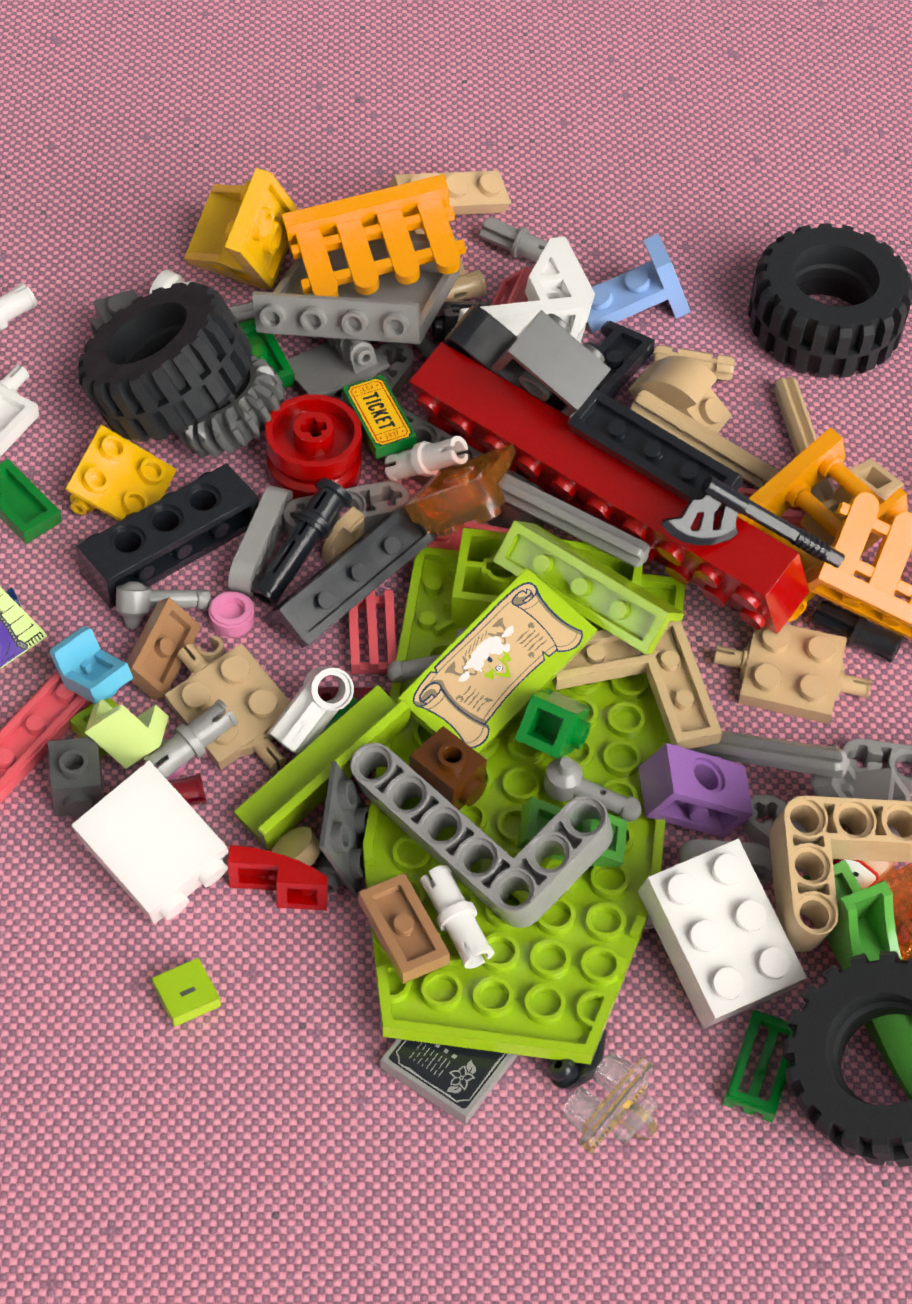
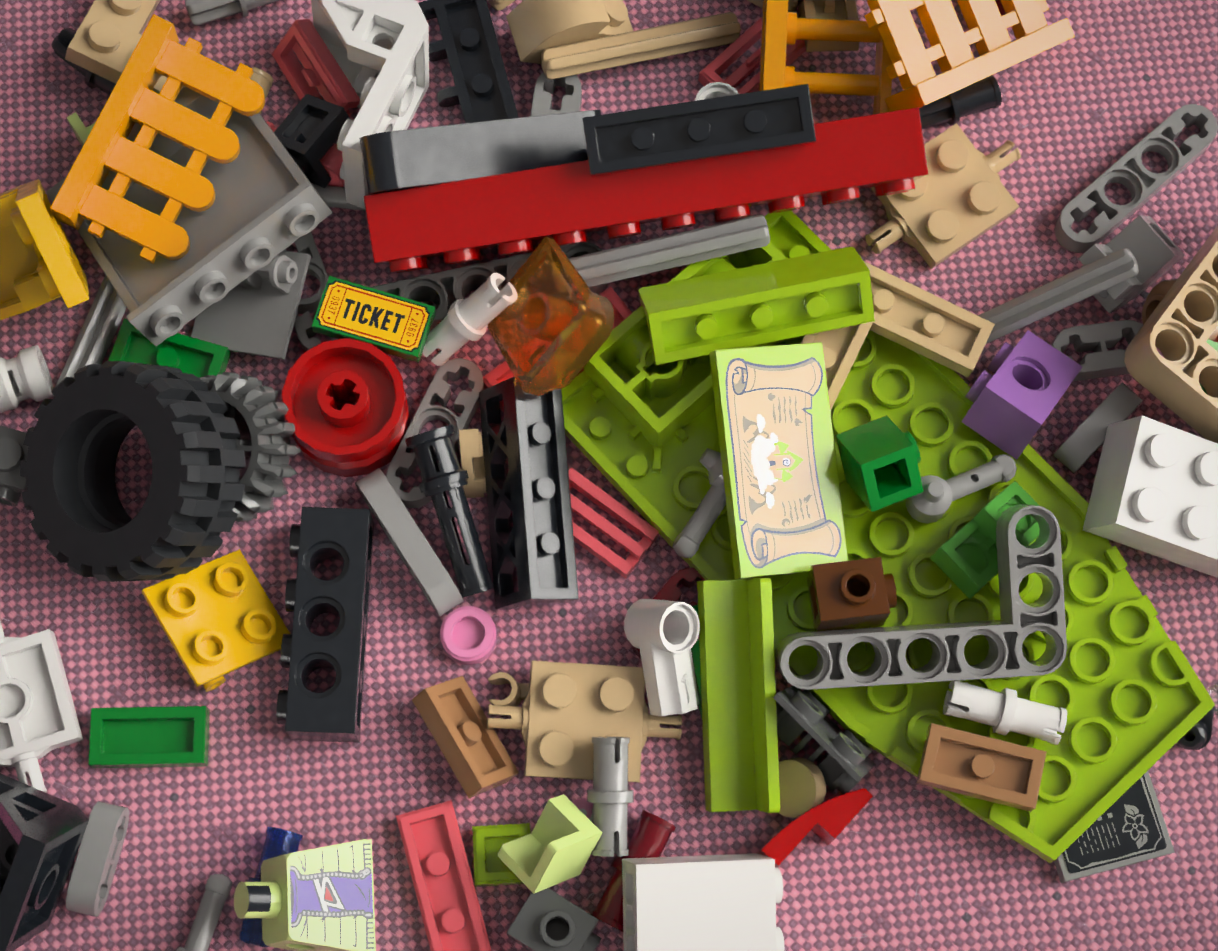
camera: 50 degrees left, 20 degrees up
(87, 668) = (449, 827): medium azure bracket -> none
(135, 600) = (385, 714): light grey piece -> none
(552, 364) = (512, 130): brick -> none
(733, 503) = (823, 124): piece -> none

